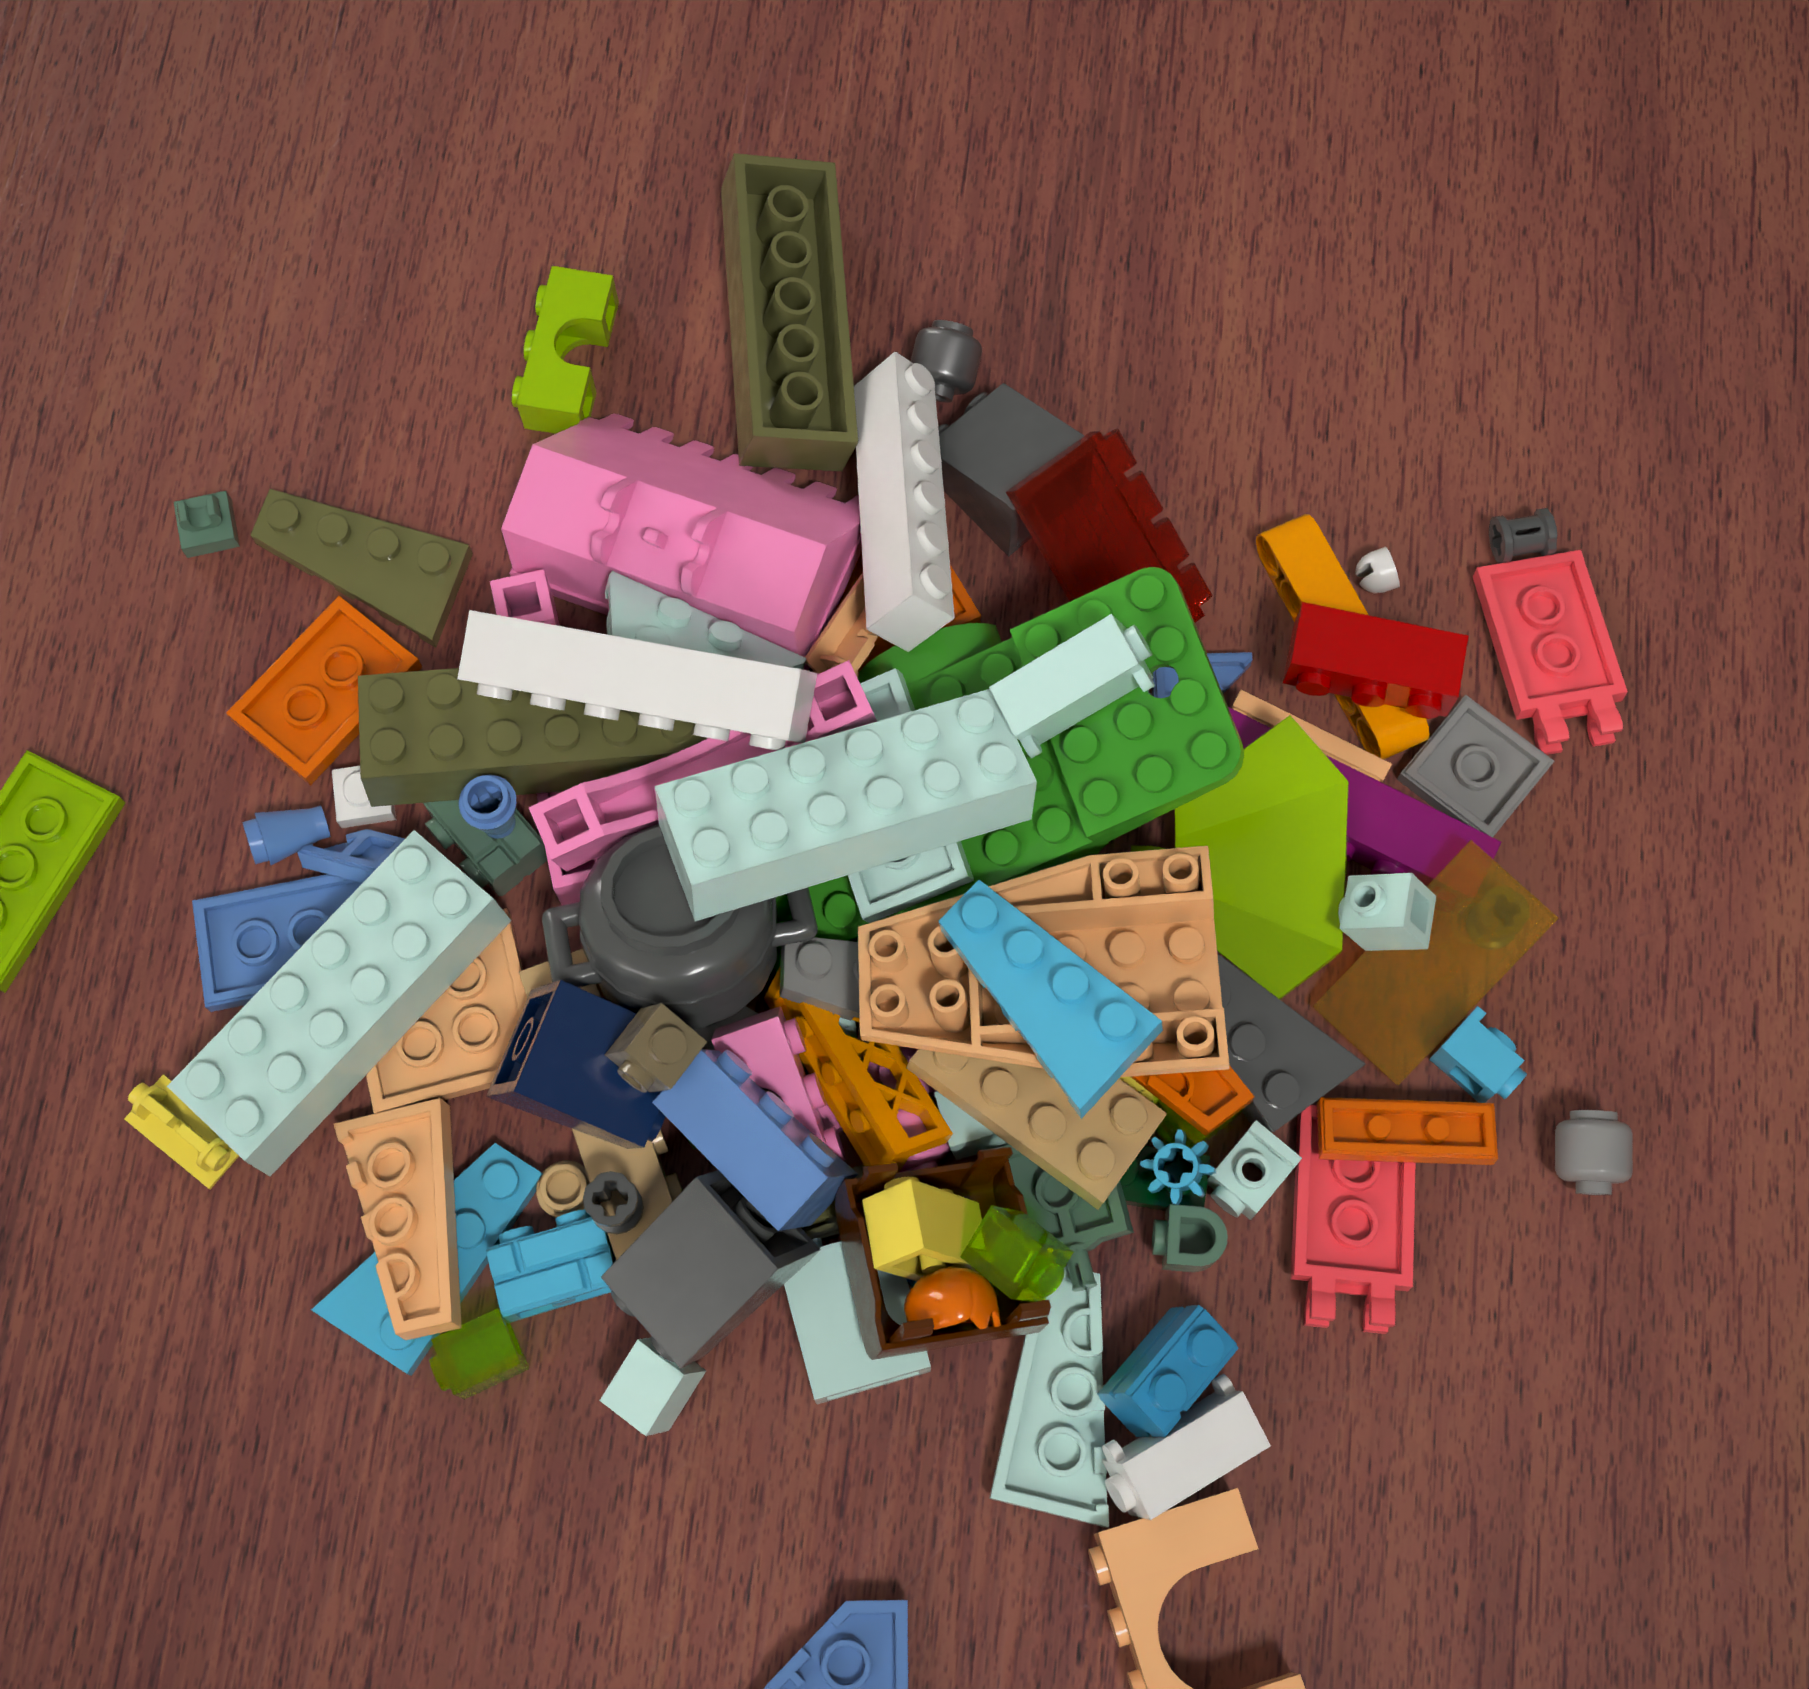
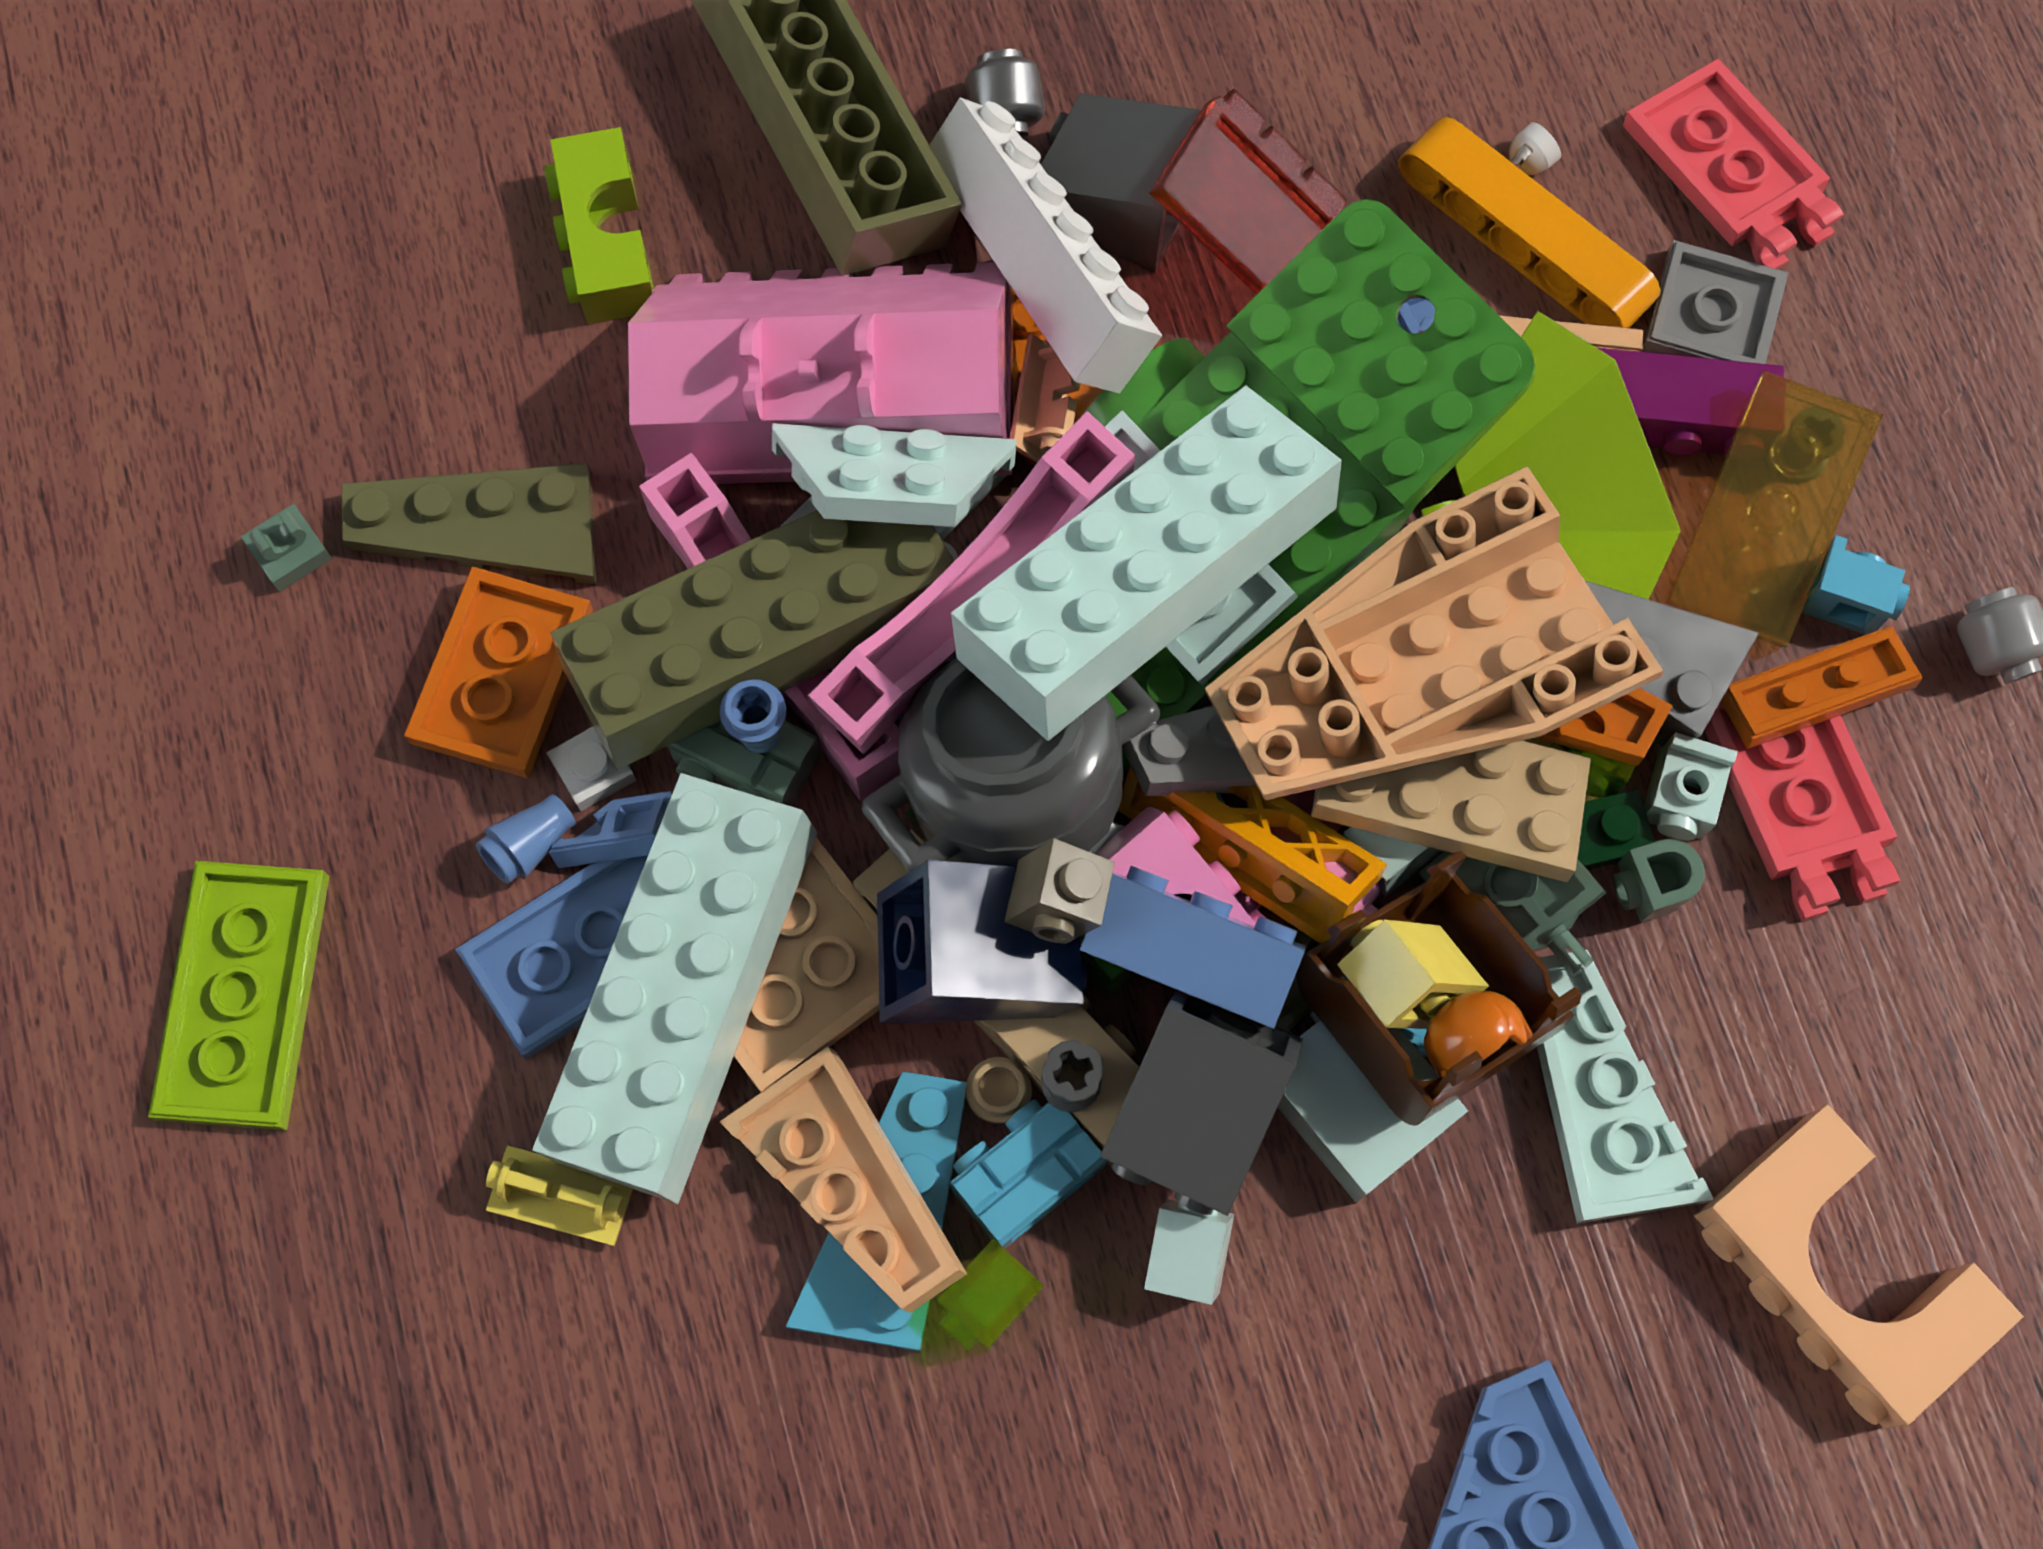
camera: 25 degrees left, 0 degrees up
(637, 677) = (867, 513): white brick -> none
(1017, 1255) = (1521, 956): clear neon green brick -> none
(1060, 1004) = (1475, 680): medium azure wing -> none
(1073, 681) = (1332, 343): light aqua brick -> none
(1168, 1153) = (1630, 792): medium azure gear -> none
(1168, 1371) = (1704, 1017): dark azure brick -> none
(1199, 1449) = (1757, 1091): white brick -> none
(1375, 660) = (1585, 231): red brick -> none
(1387, 912) = (1713, 473): light aqua brick -> none
(1523, 535) = (1657, 64): dark grey bush -> none

